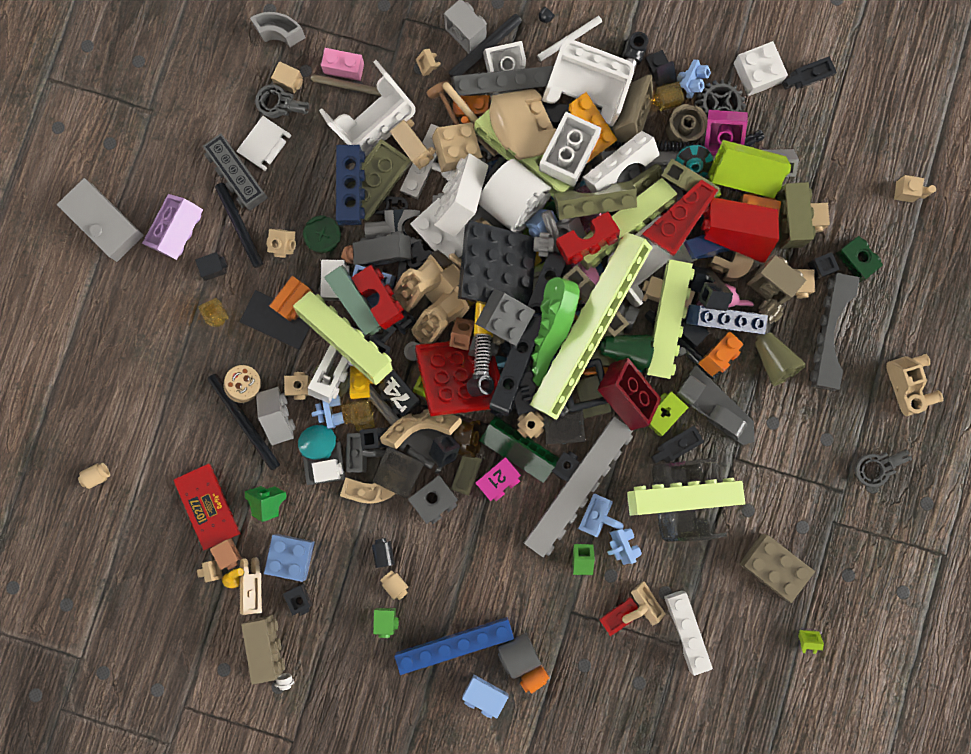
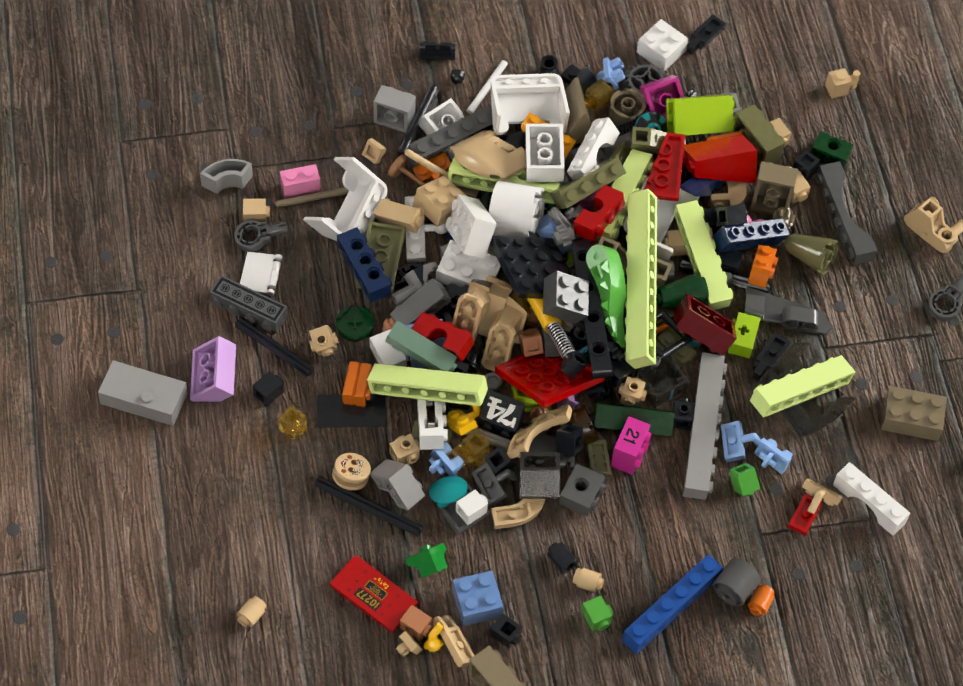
camera: 30 degrees left, 25 degrees down
(485, 697) = (725, 635): light blue brick -> none

